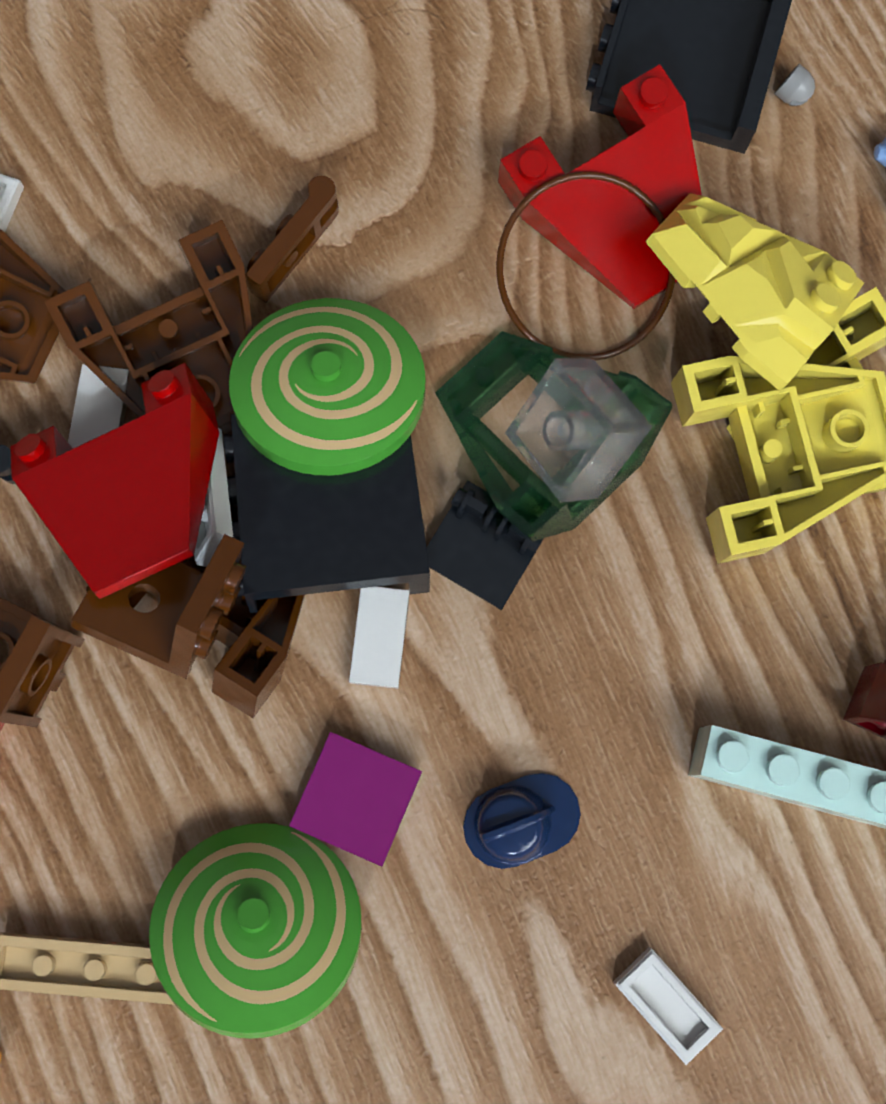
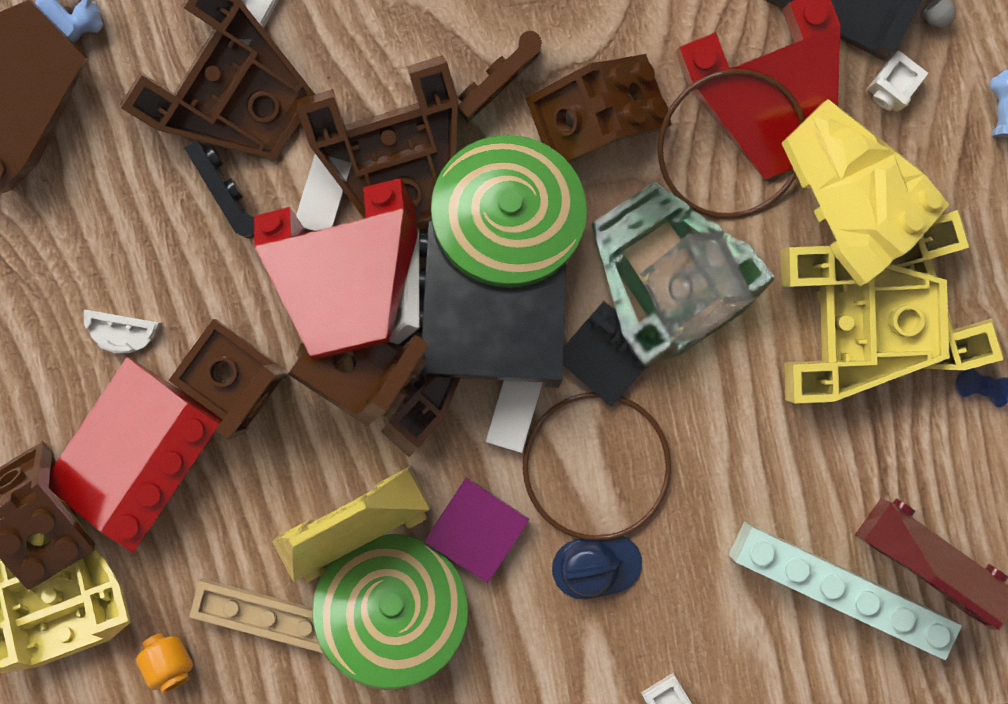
camera: 15 degrees right, 10 degrees up
(180, 814) = (384, 508): none -> light yellow wedge
(424, 239) = (599, 105): none -> reddish brown bracket
(487, 782) = (585, 536): none -> reddish brown piece
(765, 169) = (896, 82): none -> white bracket

